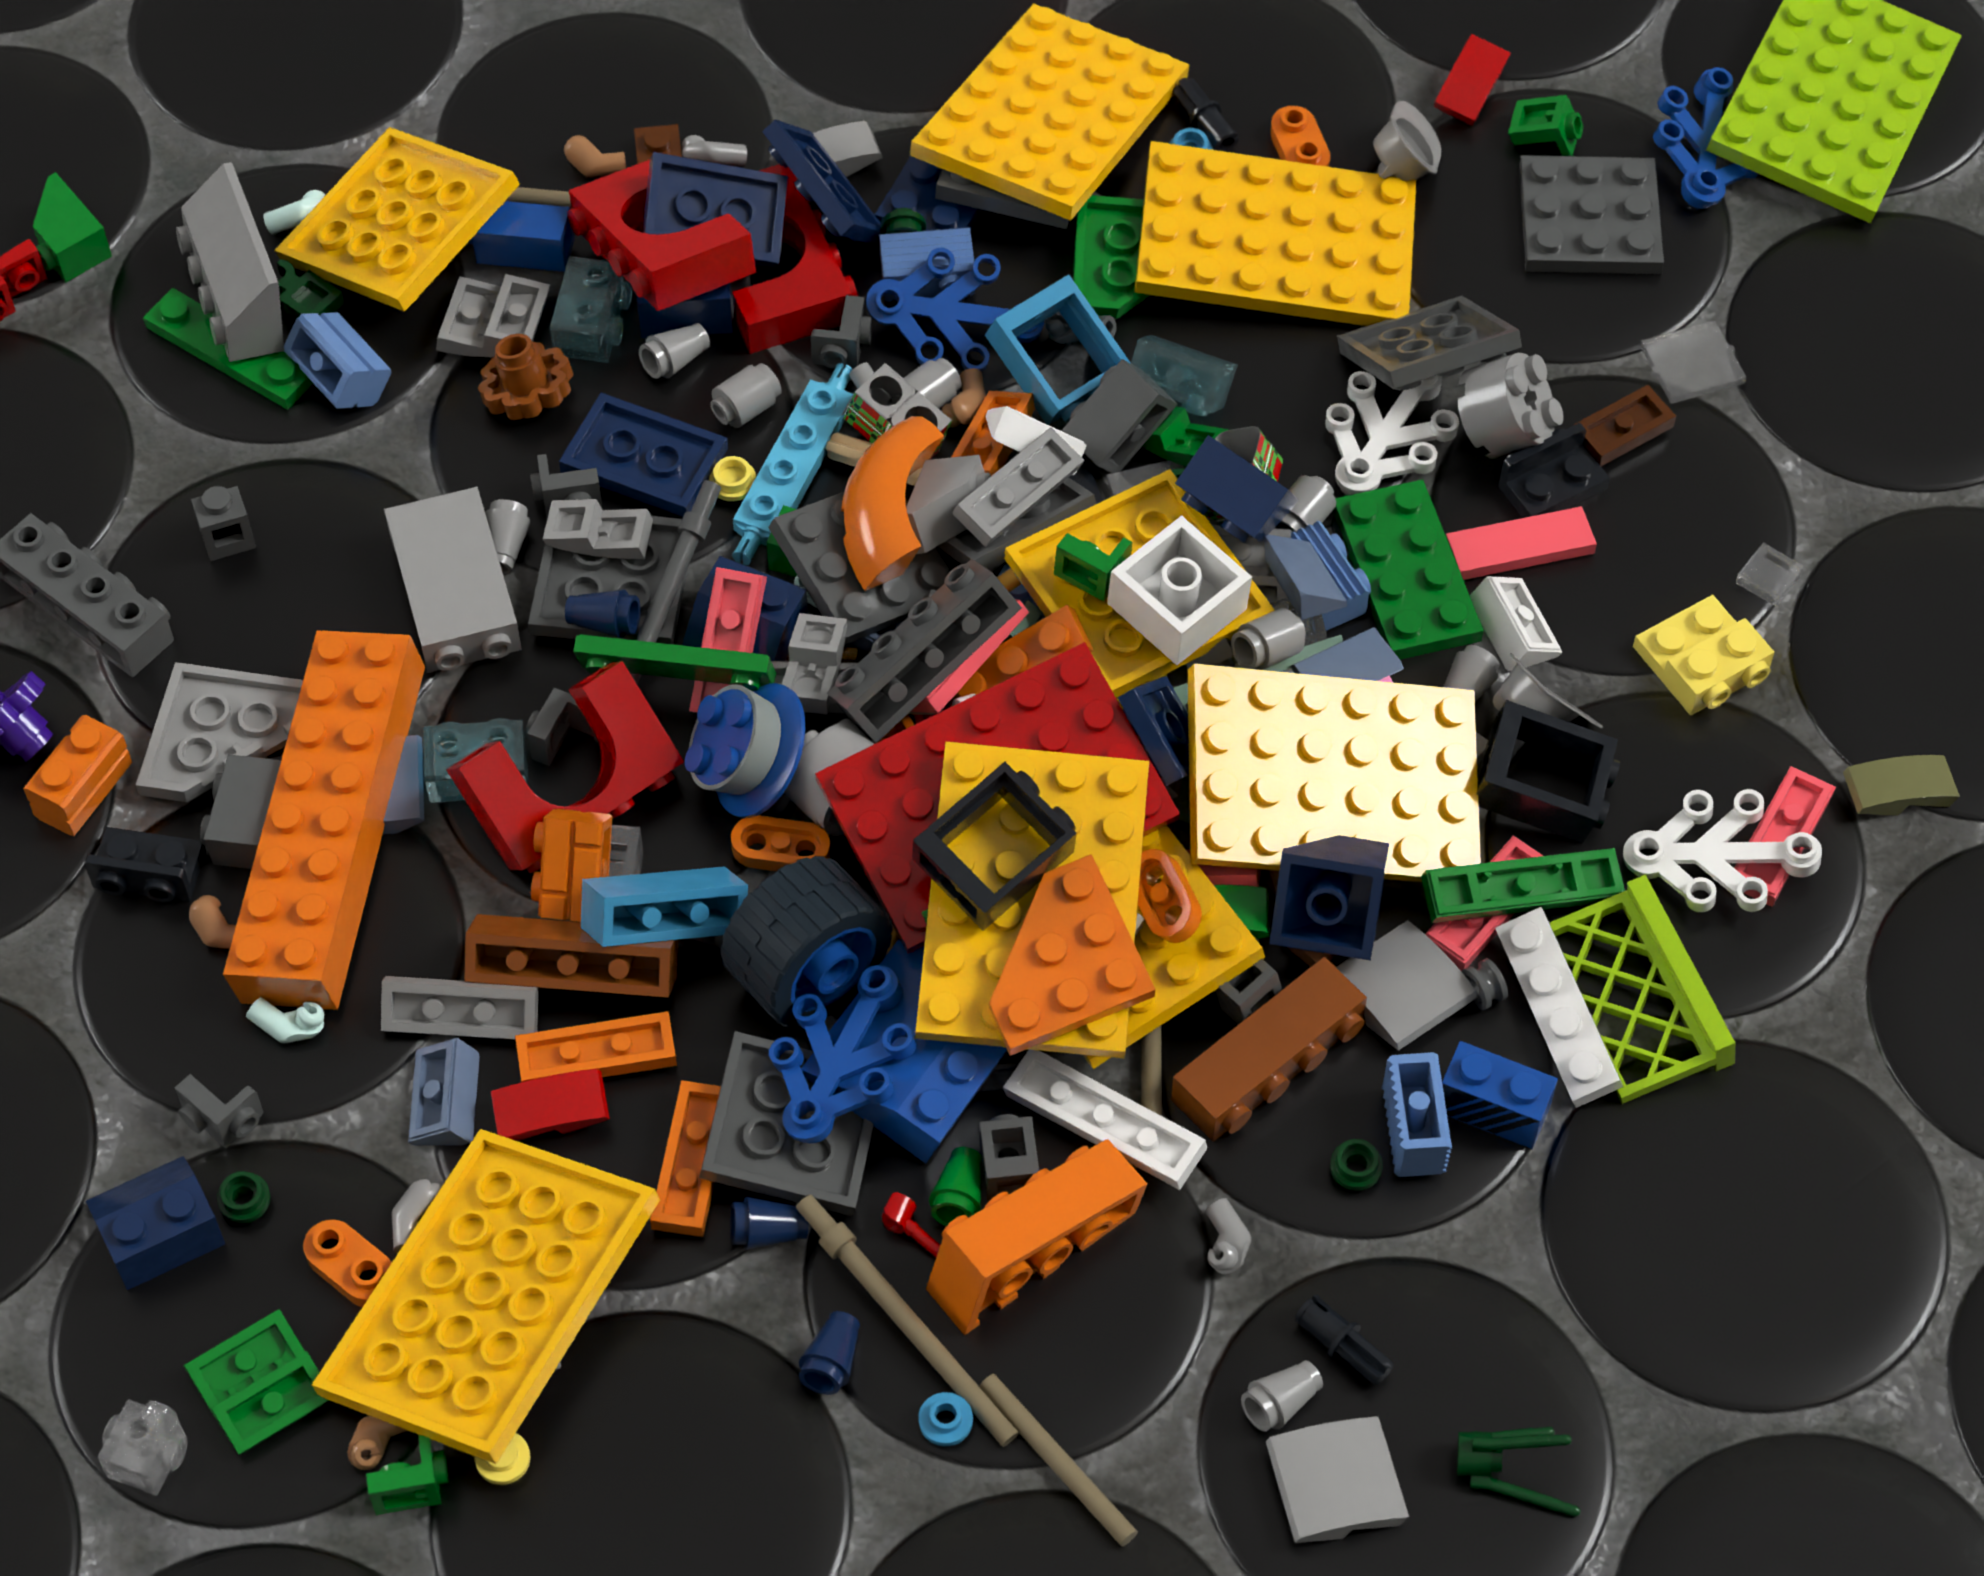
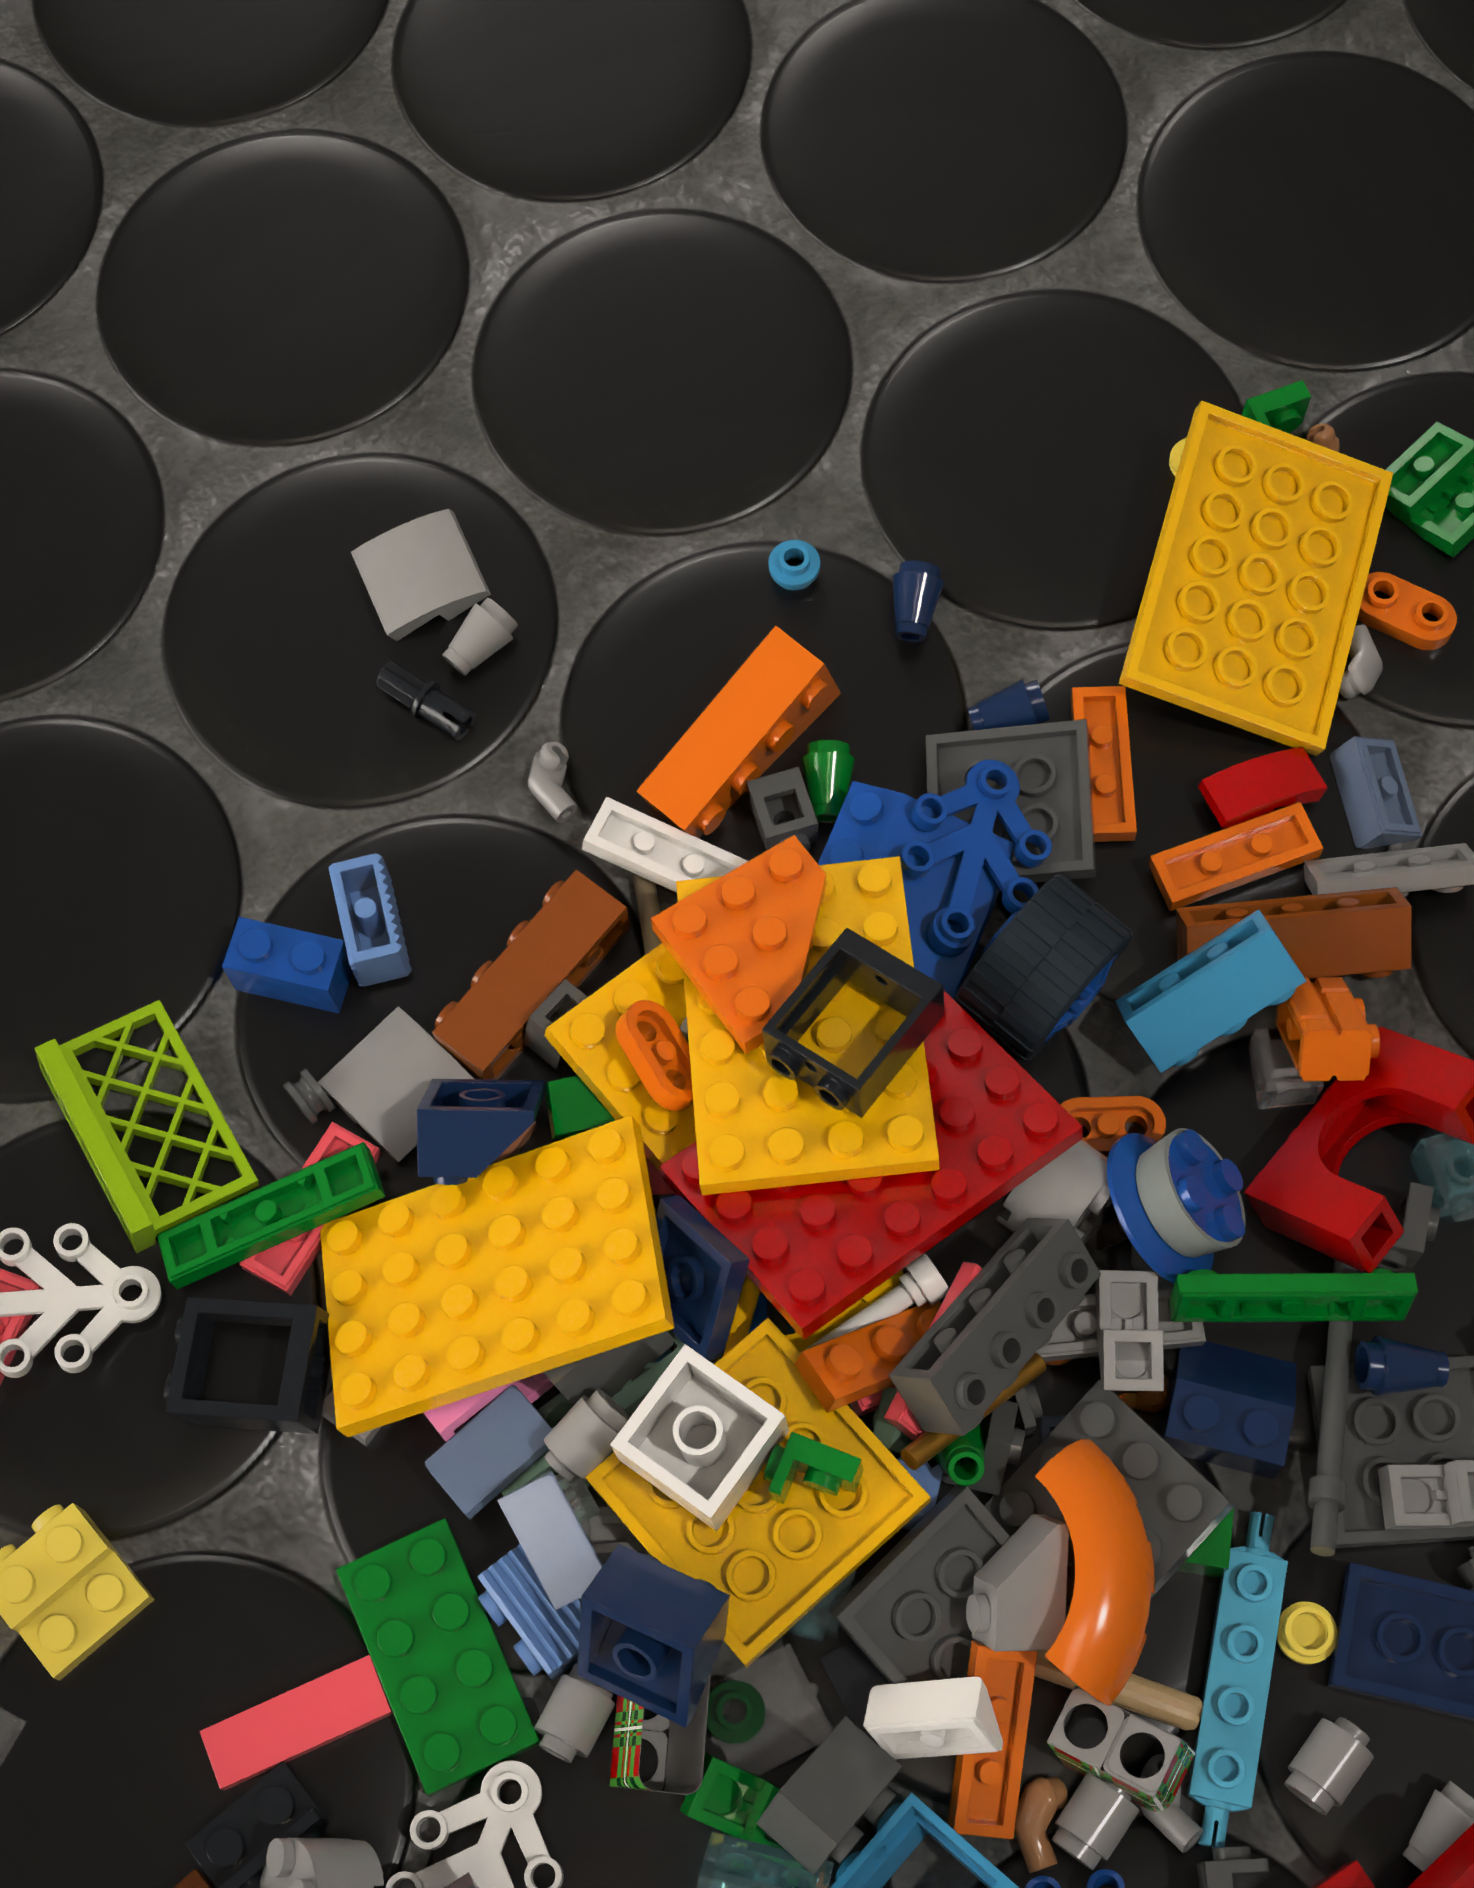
camera: 175 degrees right, 10 degrees up
(730, 620) = (1241, 1373): coral tile -> none
(839, 1243) = (930, 691): dark tan bar -> none
(898, 1217) = (882, 743): red hand -> none
(1018, 487) = (934, 1609): light grey plate -> none
(1059, 1461) = (684, 553): dark tan bar -> none
(1356, 1151) = (430, 865): dark green plate -> none
(1473, 670) = (351, 1490): light grey cone -> none
(1483, 1453) = (284, 614): dark green plant -> none
(1514, 622) = (299, 1600): white slope -> none
(1526, 690) = (253, 1468): light grey piece -> none
(1559, 1007) = (228, 1087): white plate -> none

